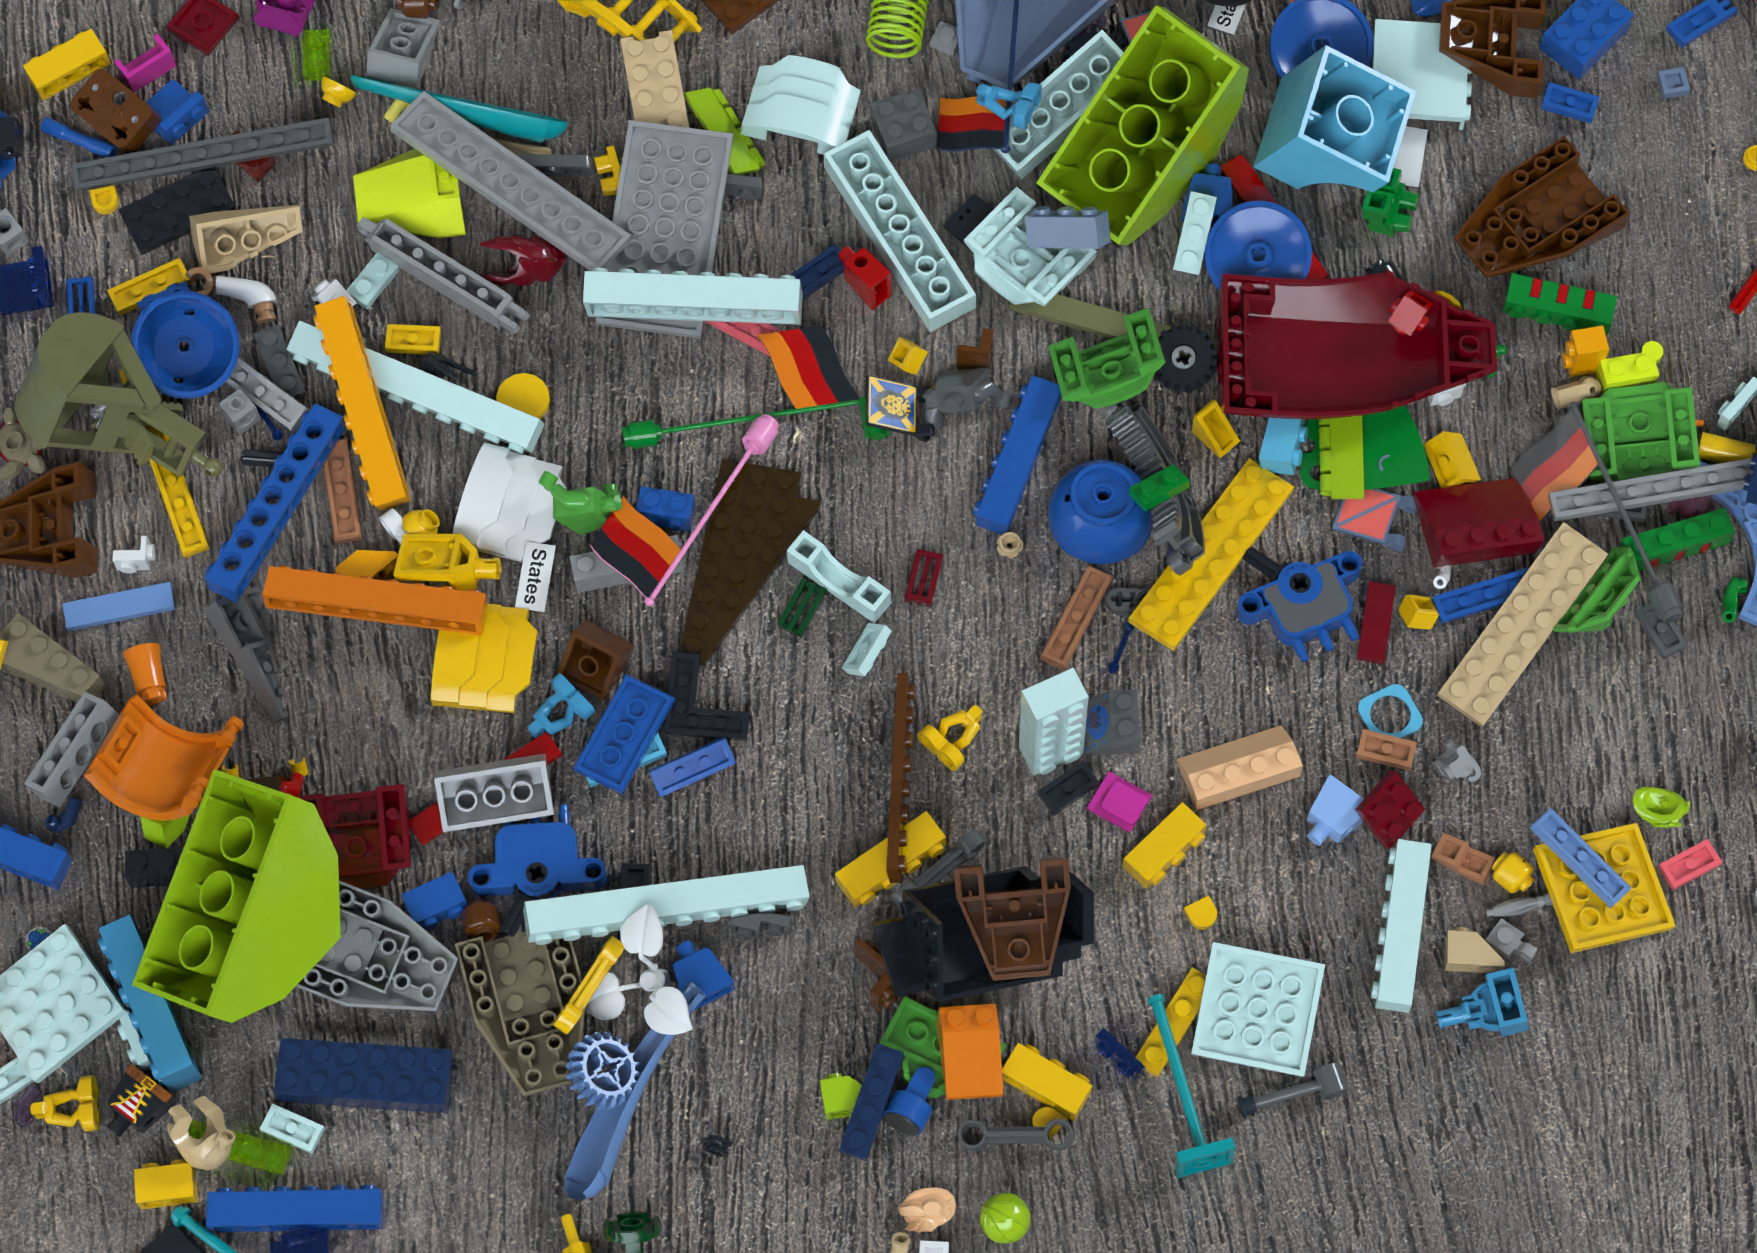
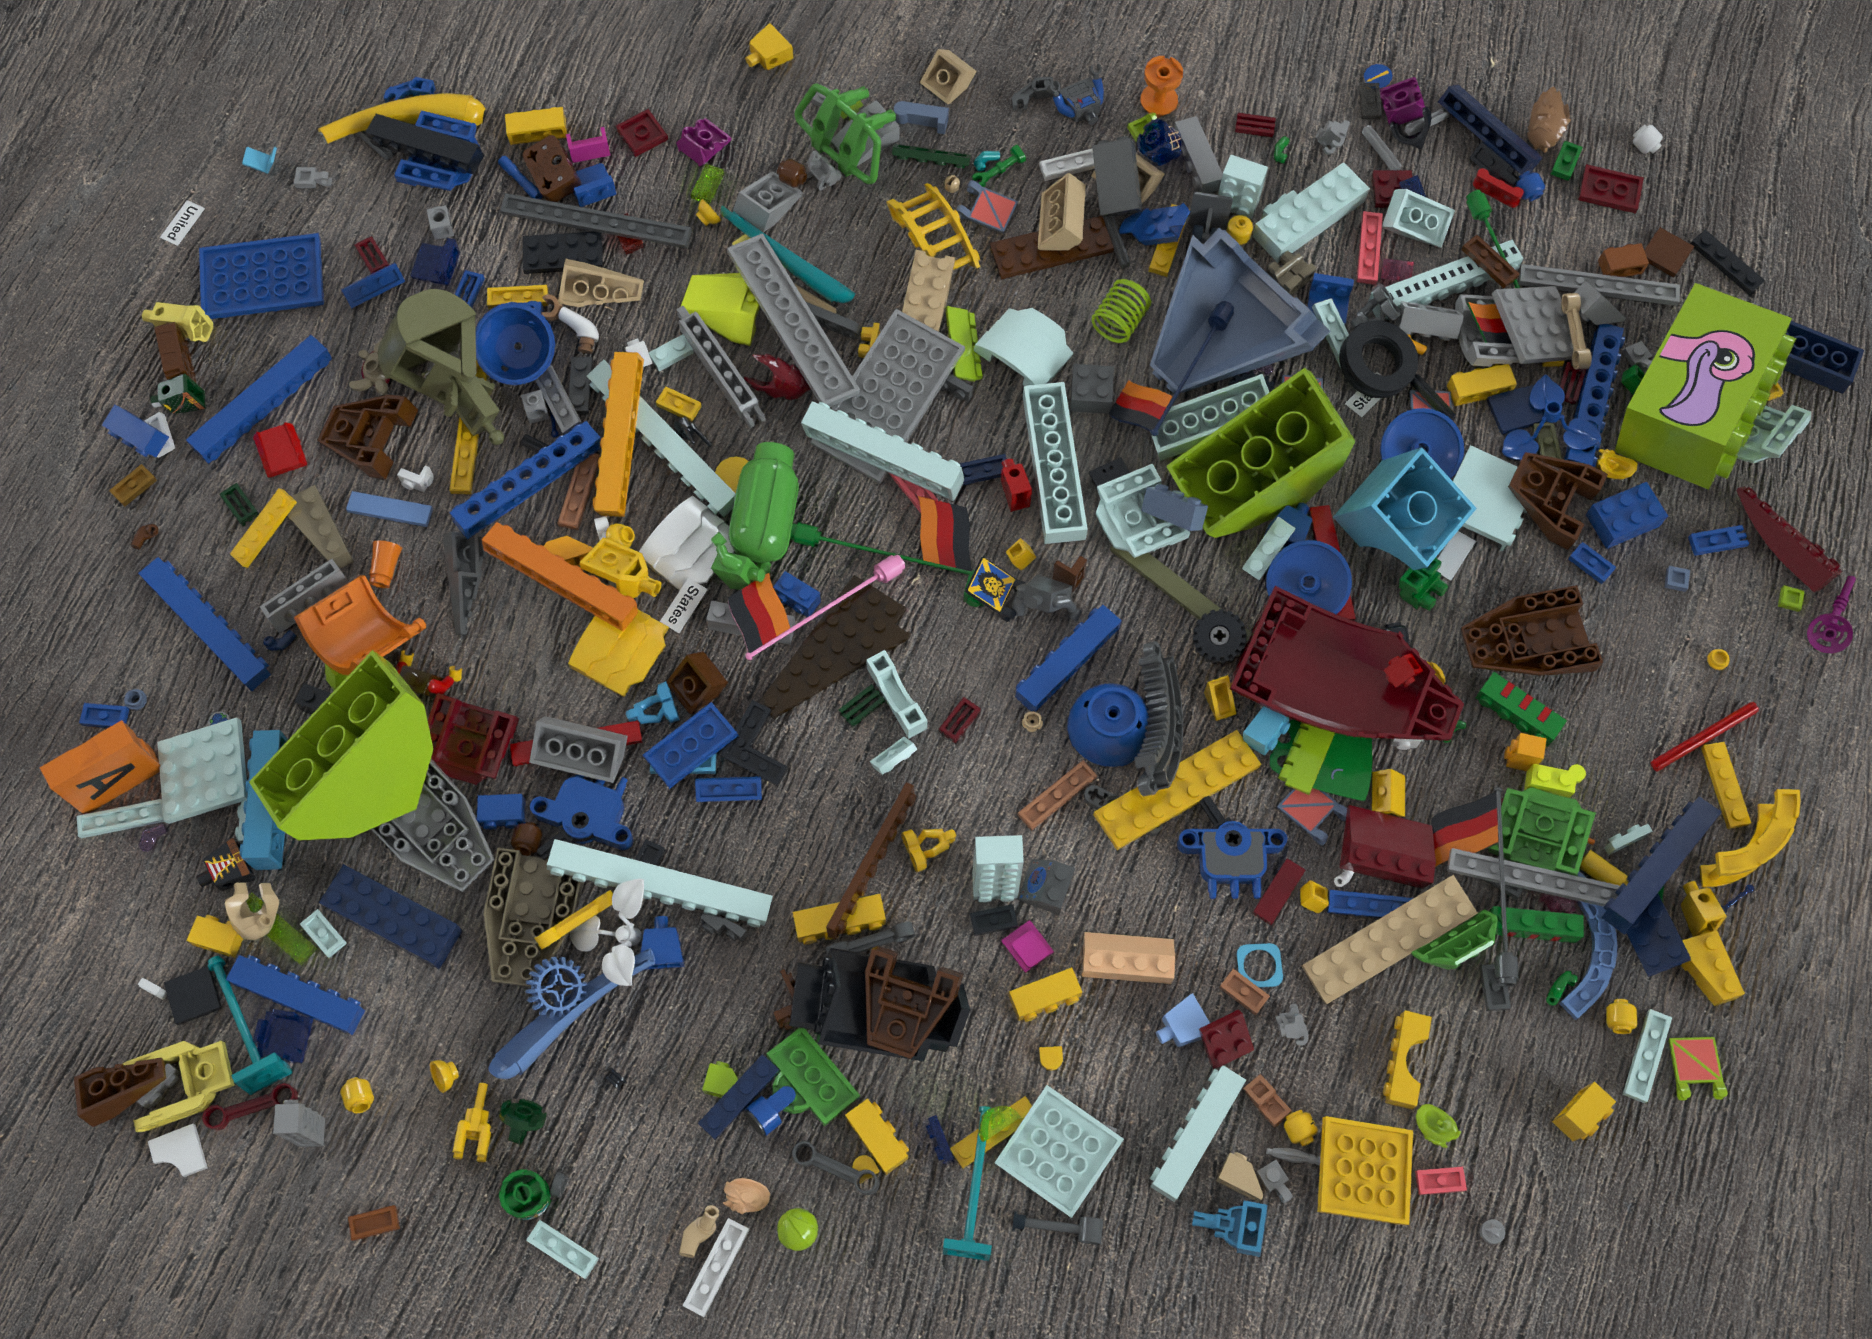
camera: 20 degrees right, 0 degrees up
(87, 1111) = (190, 859): yellow piece -> none
(104, 199) = (518, 226): yellow tile -> none
(514, 1225) = (443, 1074): none -> yellow piece
(580, 416) = (765, 504): none -> bright green piece
(945, 38) = (1149, 339): light grey plate -> none
(970, 1051) = (828, 1090): orange slope -> none
(1022, 110) = (1185, 403): dark azure piece -> none
(1112, 368) = (1161, 623): bright green slope -> none
(1113, 667) = (1068, 842): clear blue hinge -> none
(1159, 487) = (1156, 724): green plate -> none
(1173, 1005) = (995, 1120): none -> clear neon green plate
(1575, 392) = (1505, 779): tan piece -> none
(1580, 857) = (1356, 1140): medium blue tile -> none
(1605, 781) = (1402, 1088): none -> yellow arch

